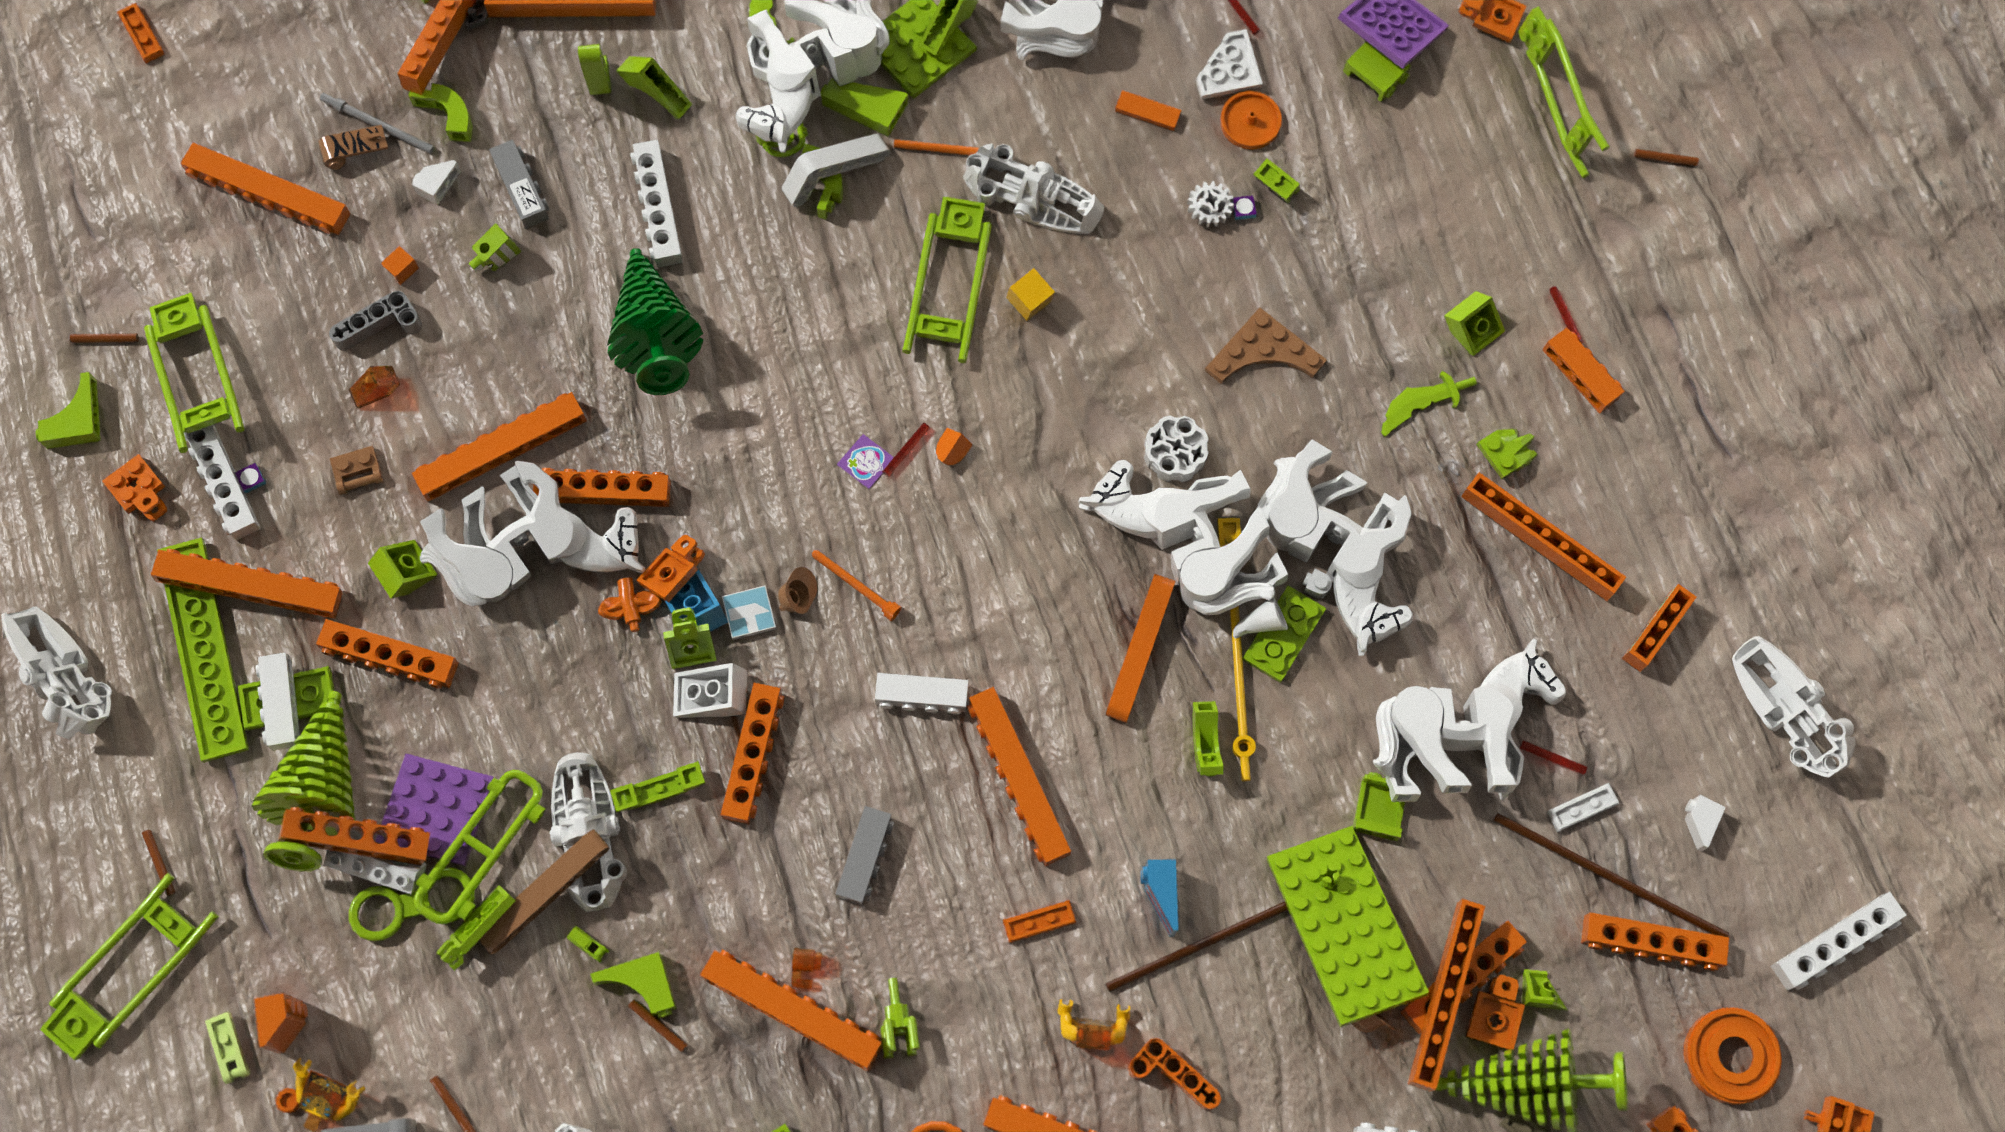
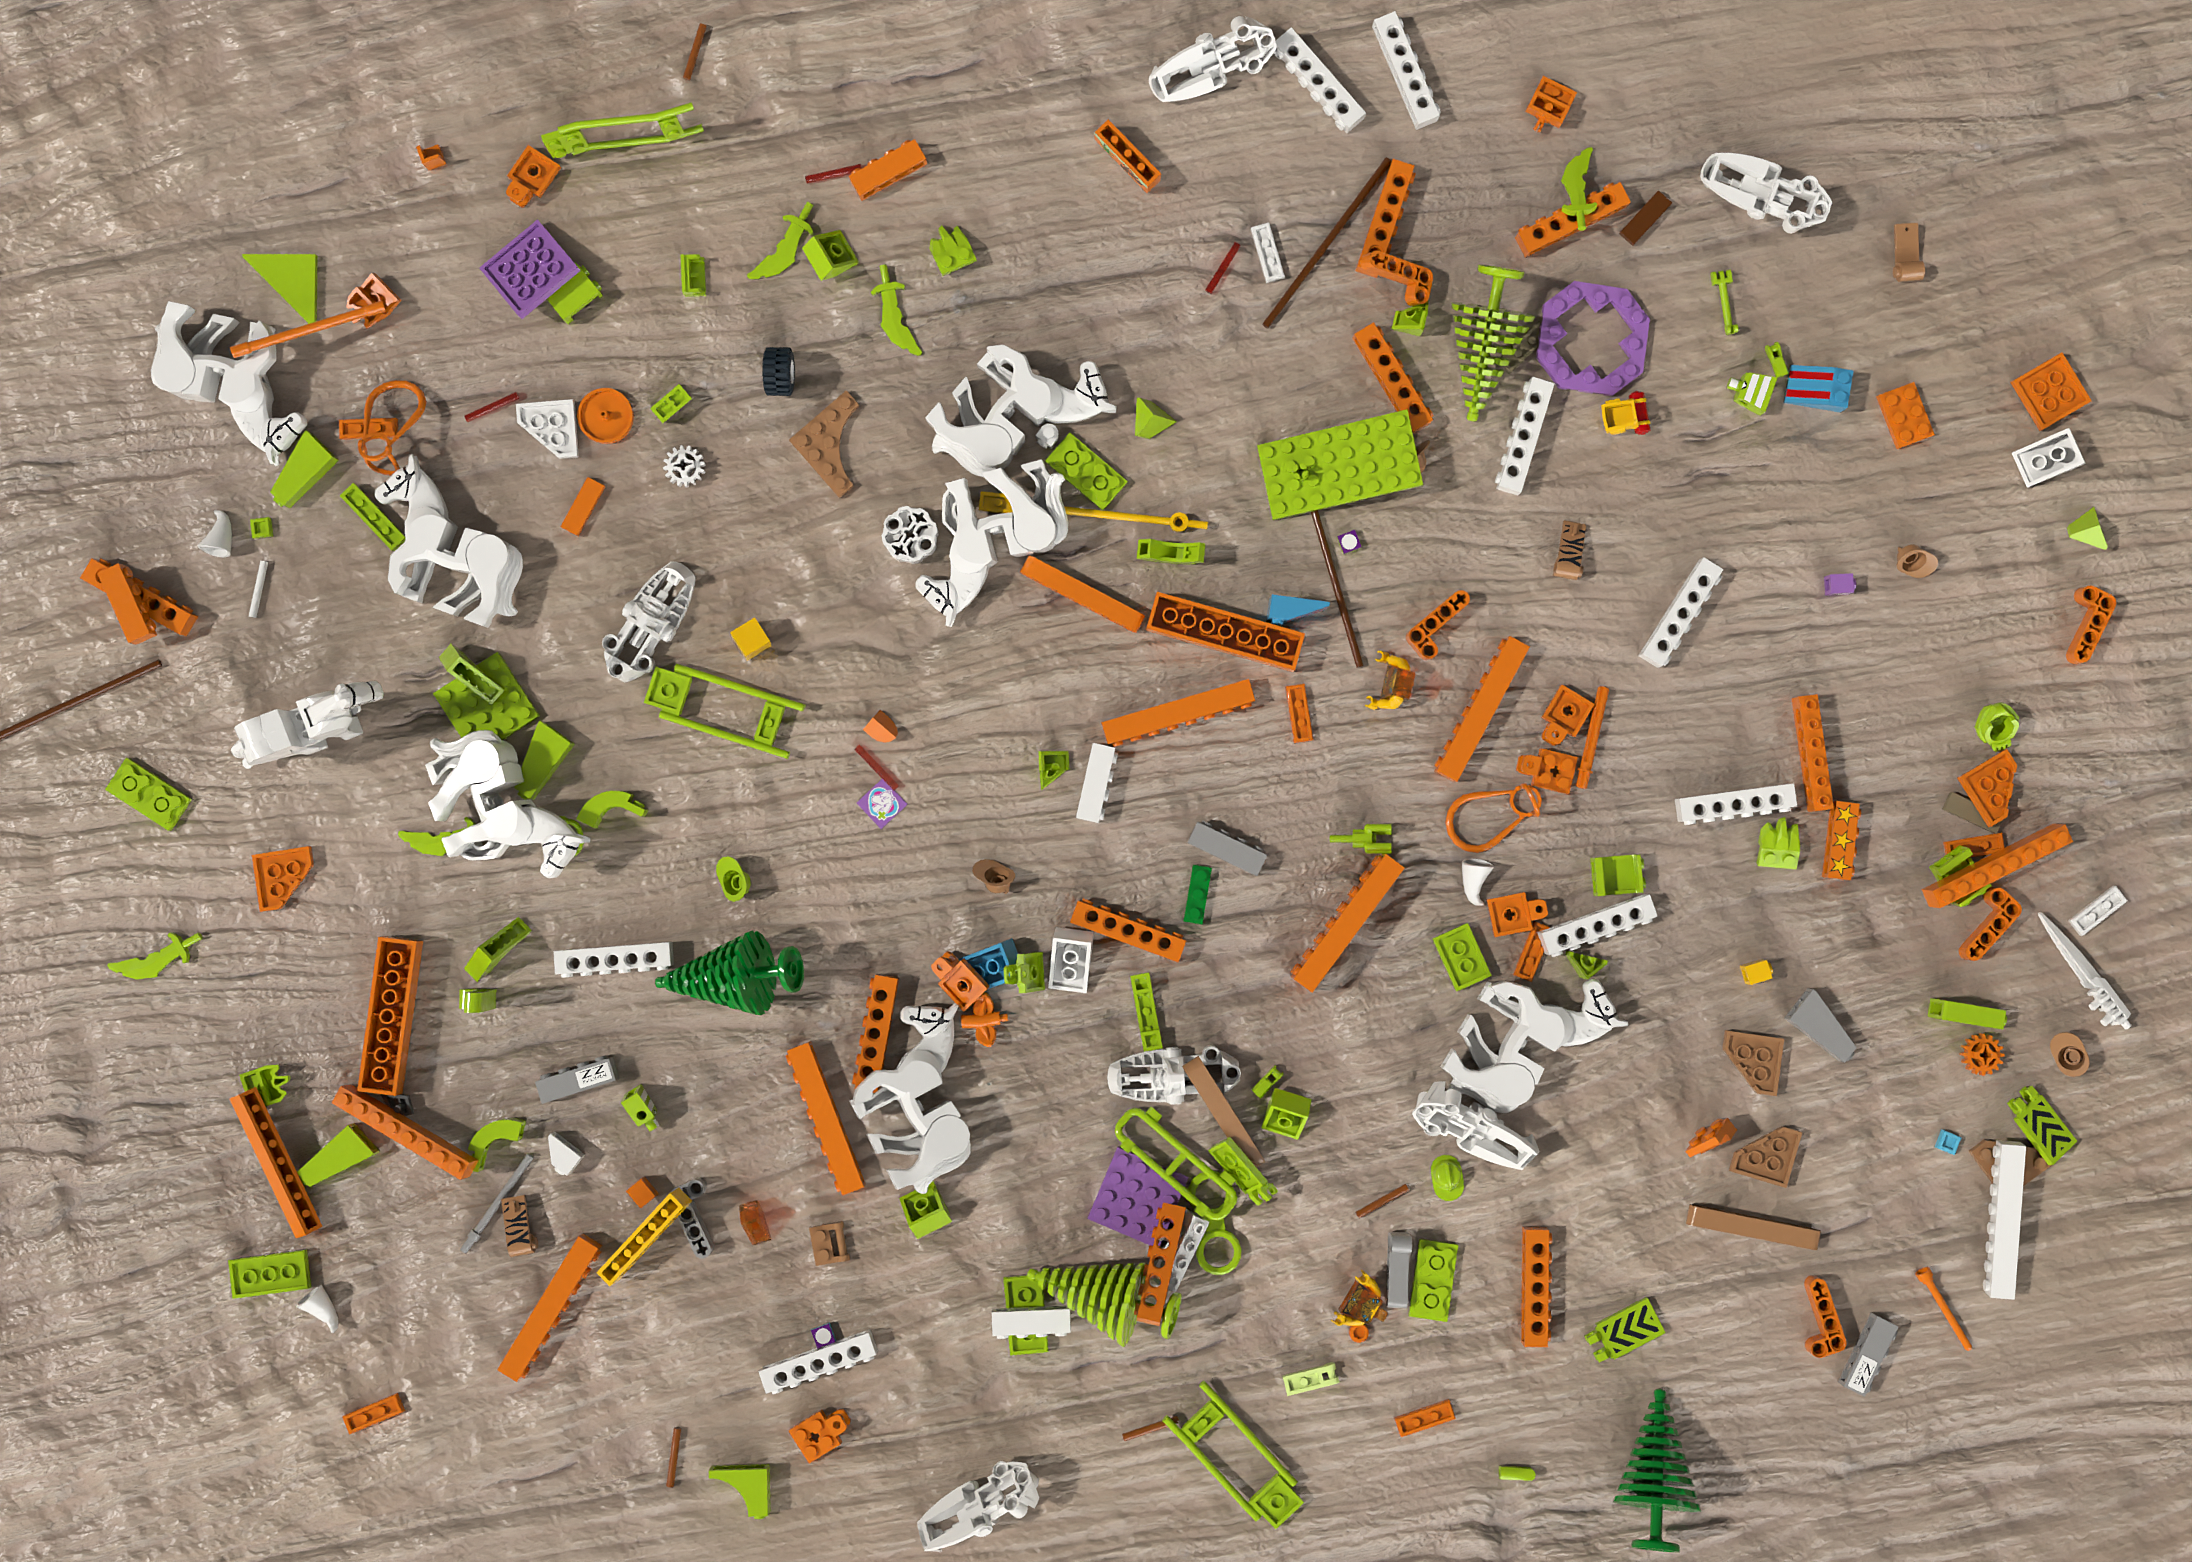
camera: 75 degrees left, 15 degrees up
(174, 320) = (667, 1393): lime plate -> none
(206, 666) = (972, 1383): lime plate -> none
(246, 583) = (923, 1341): orange brick -> none
(279, 1020) = (1299, 1335): orange slope -> none
(334, 632) = (1016, 1181): orange brick -> none
(349, 269) = (644, 1236): none -> yellow brick
(551, 972) = (1286, 1113): none -> lime slope
(647, 977) = (1302, 1036): lime arch -> none
(657, 1025) = (1339, 1032): dark orange bar -> none
(749, 612) = (1004, 919): tile -> none
(758, 314) = (732, 878): none -> lime piece
(805, 830) = (1197, 894): none -> green plate
(807, 961) = (1306, 906): clear orange piece -> none
(831, 161) = (600, 797): white beam -> none
(890, 609) = (1018, 800): orange piece -> none
(934, 639) = (1052, 765): none -> lime slope
(935, 147) = (592, 702): orange bar -> none
(1122, 817) = (1225, 632): none -> orange brick
(1244, 207) = (690, 436): tile -> none
(1255, 952) = (1348, 542): none -> tile
(1262, 619) = (1075, 488): white hat -> none
(1333, 282) = (778, 371): none -> black wheel
(1359, 697) = (1150, 419): none -> lime slope
(1375, 811) = (1244, 418): lime panel -> none
(1421, 185) = (693, 275): none -> lime hinge
(1424, 725) = (1183, 368): white animal -> none
(1446, 995) = (1410, 395): orange brick -> none
(1472, 278) = (786, 248): none -> lime sword
(1501, 1003) = (1416, 357): orange plate -> none
(1543, 536) = (1034, 236): orange brick -> none
(1590, 960) = (1396, 273): none -> orange beam
(1703, 820) = (1293, 157): white slope -> none
(1708, 1073) = (1469, 196): orange piece -> none
(1838, 797) = (1292, 42): none -> white brick

